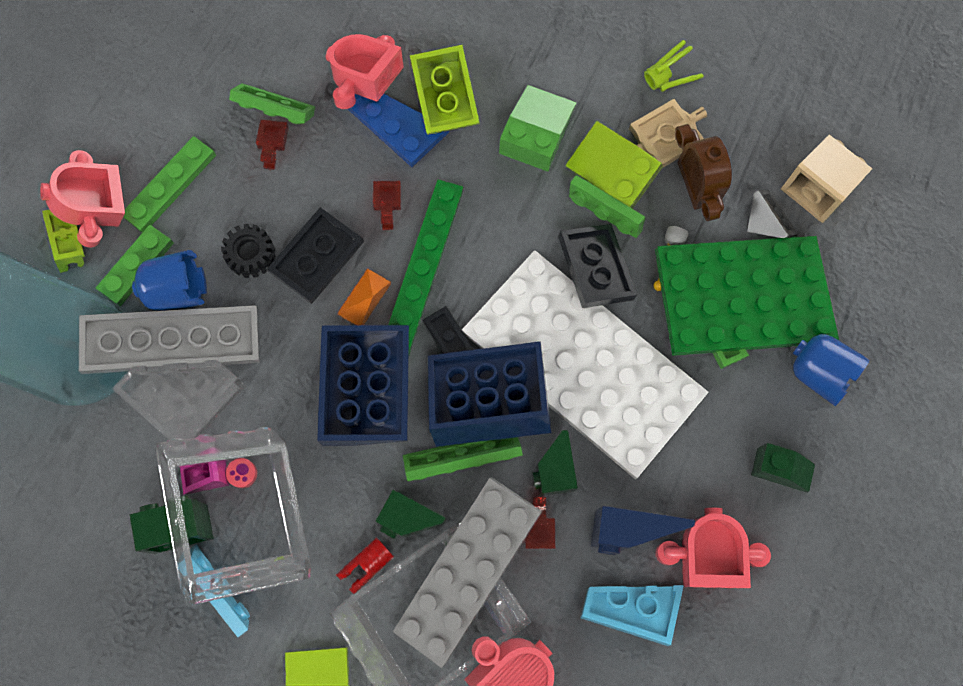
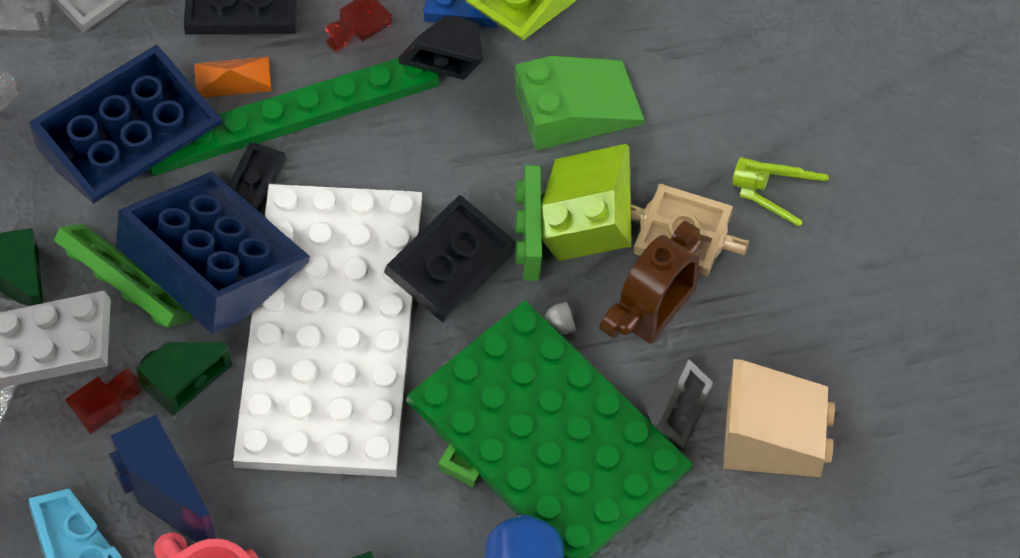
camera: 55 degrees right, 15 degrees down
(451, 166) = (446, 48): none -> black slope

